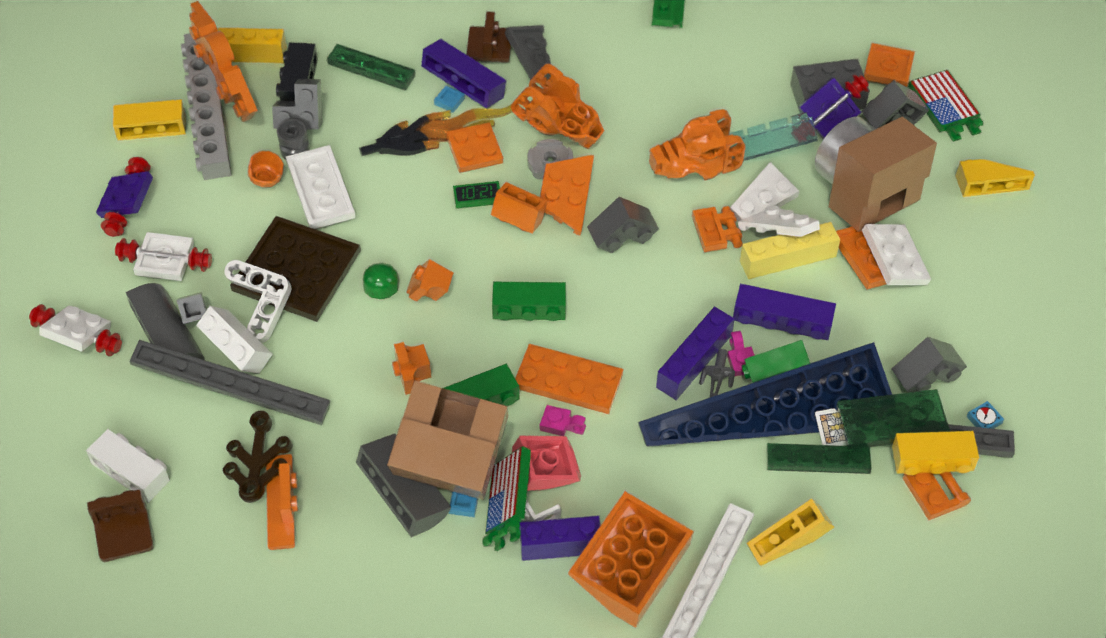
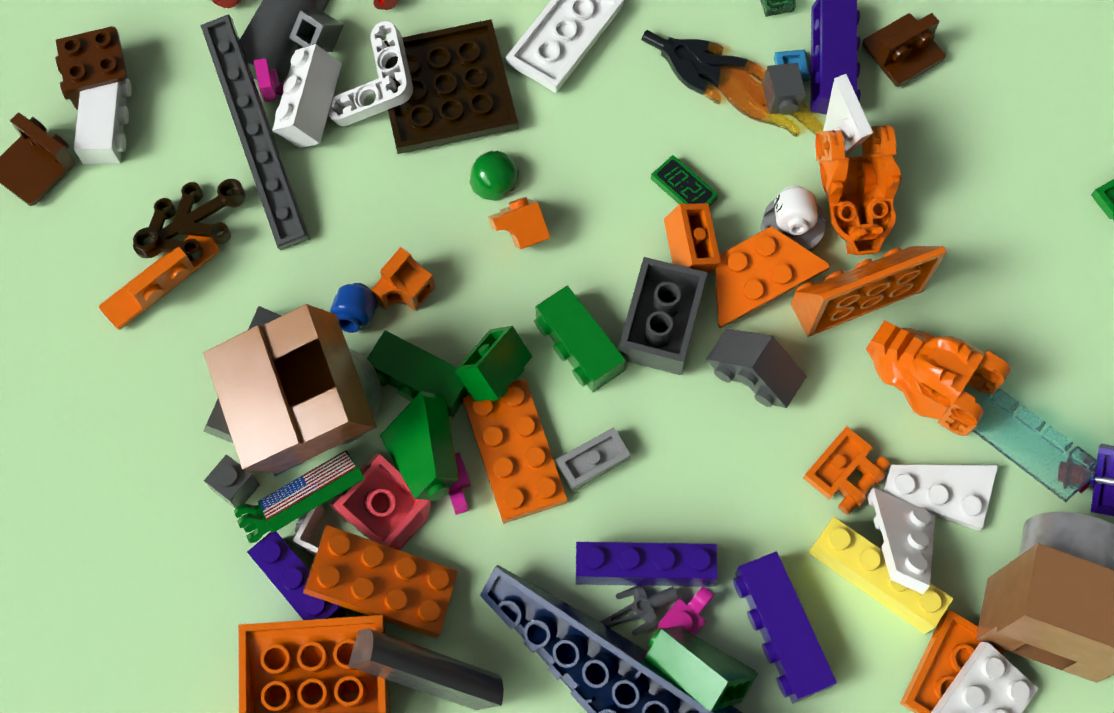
camera: 55 degrees right, 15 degrees up
(85, 447) = (89, 61): none -> reddish brown bracket
(204, 349) = (268, 80): none -> dark pink plate
(397, 400) = (354, 307): none -> blue head
(463, 535) = (232, 482): none -> dark grey brick
(464, 107) = (783, 88): none -> dark grey brick
(474, 147) = (744, 138): orange plate -> none
(510, 346) = (493, 364): none -> green brick
(515, 79) = (847, 115): none -> white wing
(529, 47) = (931, 95): dark grey wing -> none
(533, 414) = (423, 446): none -> green slope
(546, 147) = (795, 210): none -> white head
(552, 249) = (662, 315): none -> dark grey brick
(598, 487) = (381, 581): none -> orange plate
(609, 340) = (593, 459): none -> light grey plate
(619, 147) = (865, 287): none -> orange slope
(677, 489) = (426, 670): none -> dark grey brick

